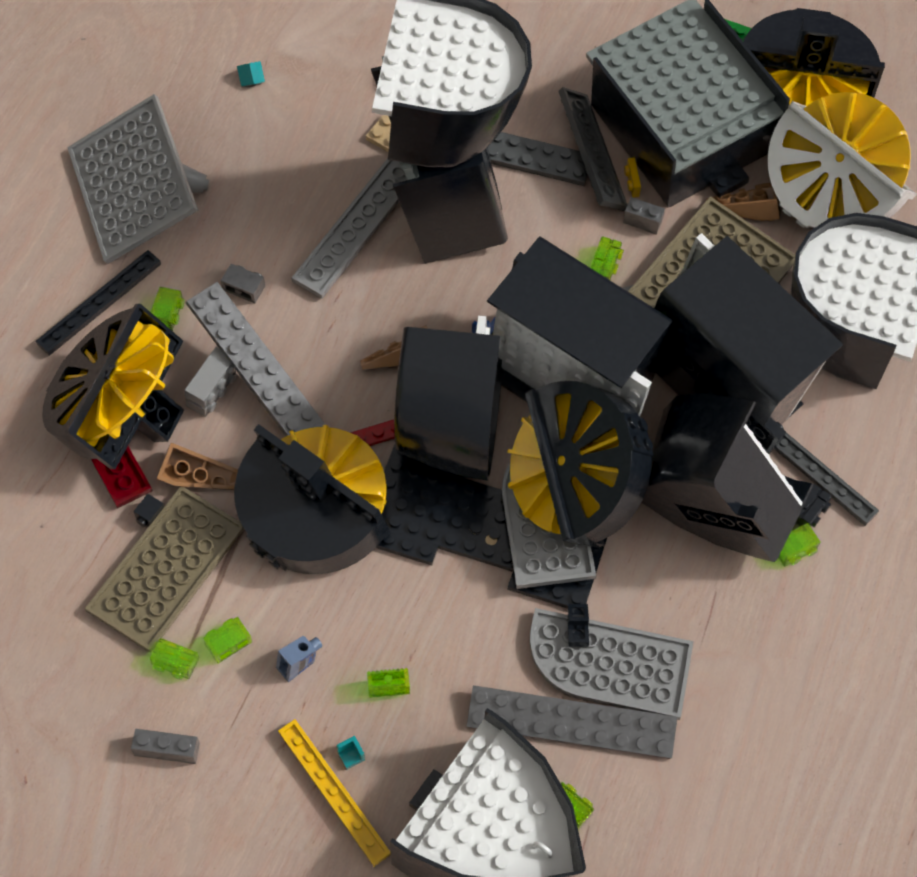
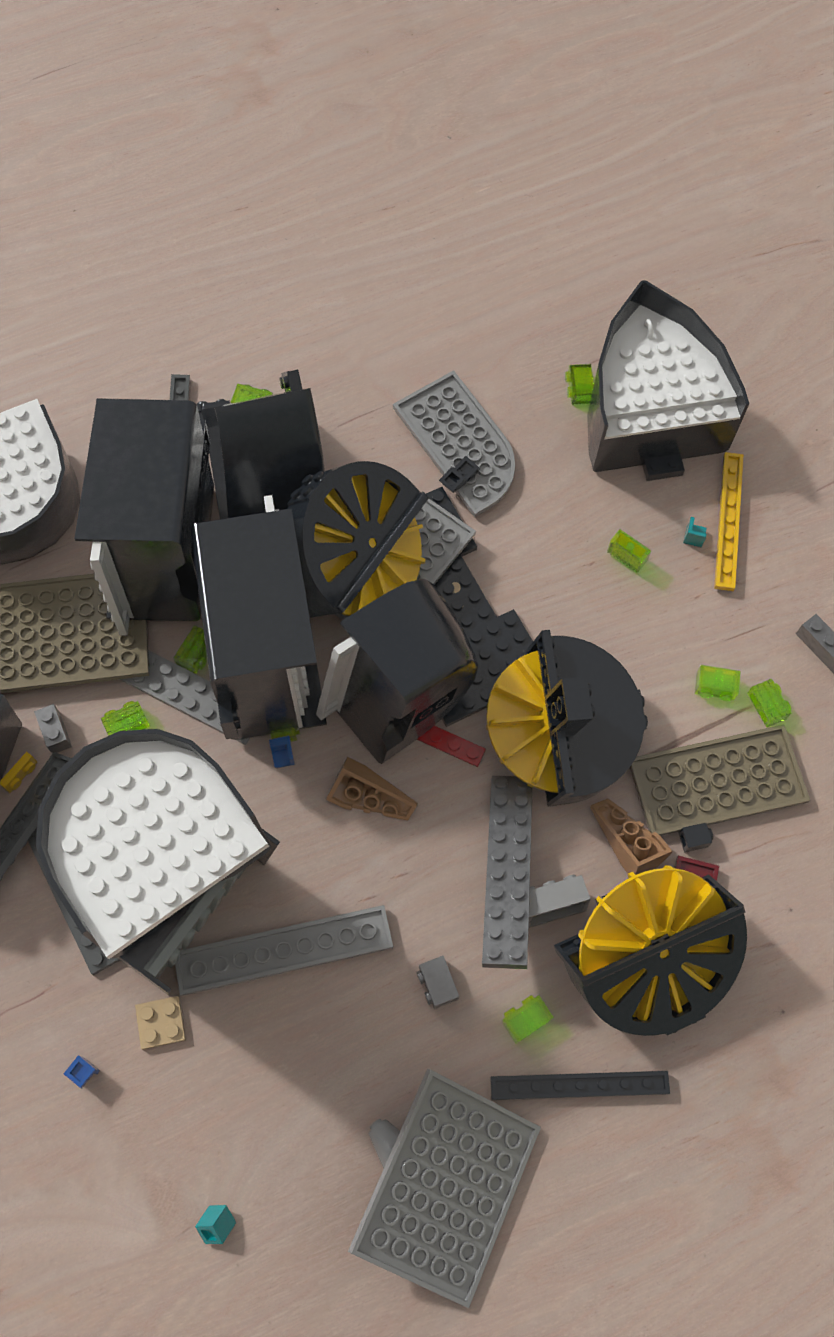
camera: 135 degrees left, 5 degrees up
(297, 657) = (677, 622): sand blue torso -> none
(577, 721) = (527, 429): flat silver plate -> none

